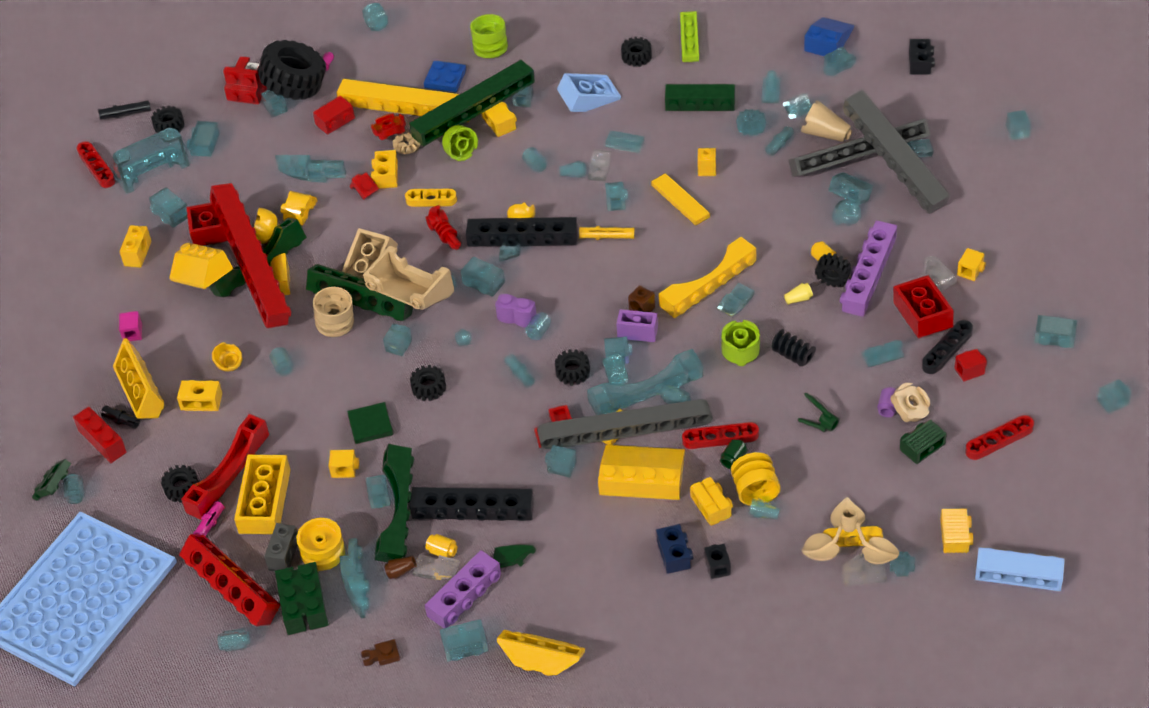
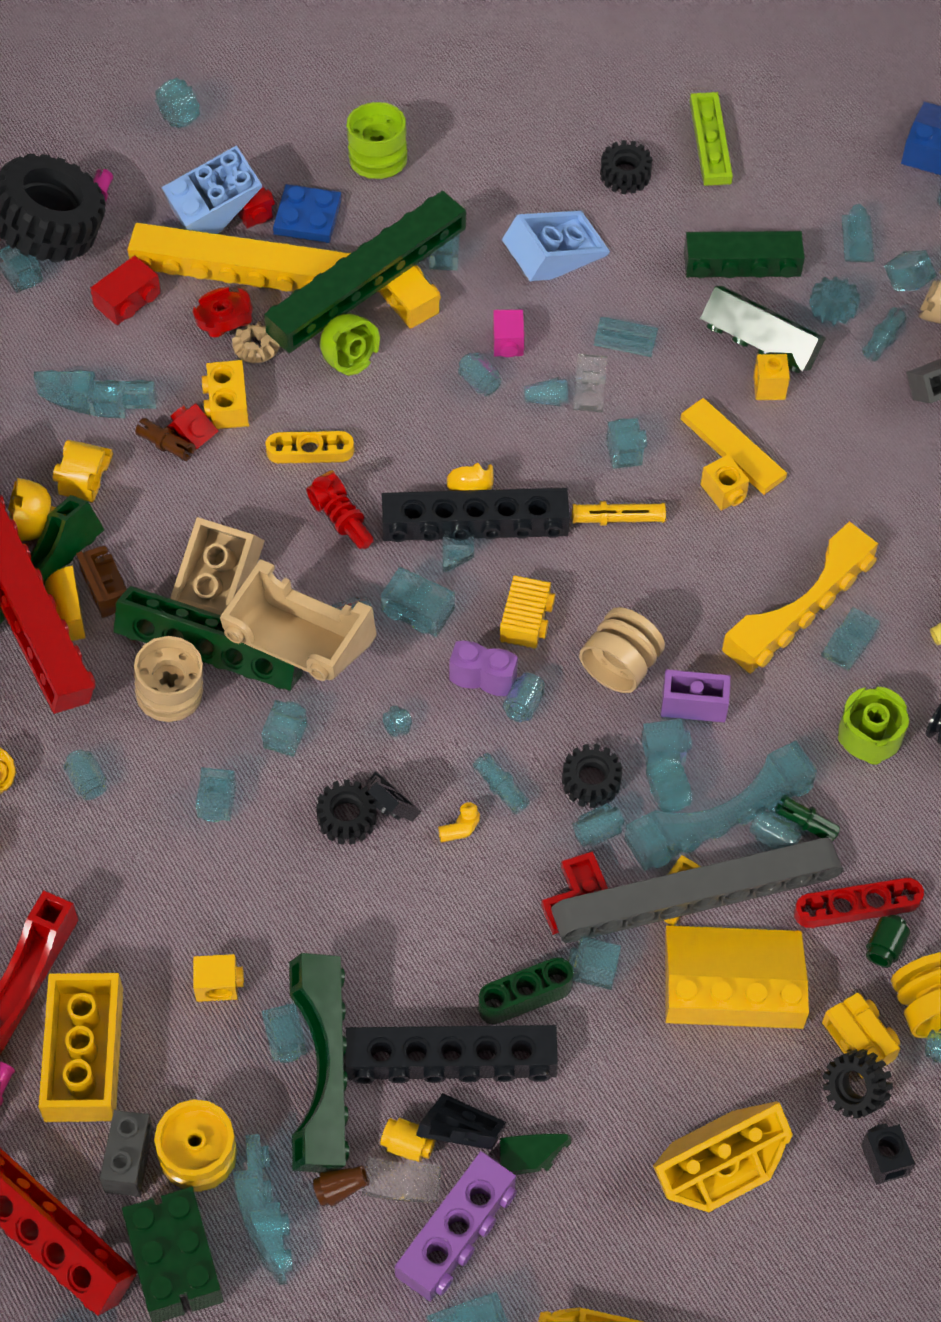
camera: 10 degrees left, 10 degrees up
(301, 261) = (101, 579): none -> reddish brown hinge
(347, 192) = (165, 439): none -> reddish brown pin
(354, 372) = (215, 794): none -> clear light blue brick
(370, 423) = (253, 892): dark green tile -> none
(389, 62) = (213, 192): none -> light blue slope
(413, 69) = (258, 208): none -> red brick
(453, 376) = (389, 799): none -> black wing
(472, 538) = (460, 1124): none -> black wing
(495, 392) = (463, 826): none -> yellow arm
(519, 473) = (515, 1003): none -> dark green beam
(544, 282) = (525, 612): none -> yellow brick
(554, 138) = (508, 333): none -> dark pink brick
(572, 392) = (598, 825): none -> clear light blue brick
(596, 300) = (622, 650): none -> tan wheel
(621, 560) = (724, 1157): none -> yellow wedge
(641, 300) = (695, 647): reddish brown brick -> none
(671, 217) = (725, 472): none -> yellow brick
(671, 549) = (809, 1131): dark blue brick -> none
(694, 522) = (873, 1076): none -> black tyre
(695, 390) = (807, 818): none -> dark green axle
(704, 135) = (761, 328): none -> brick

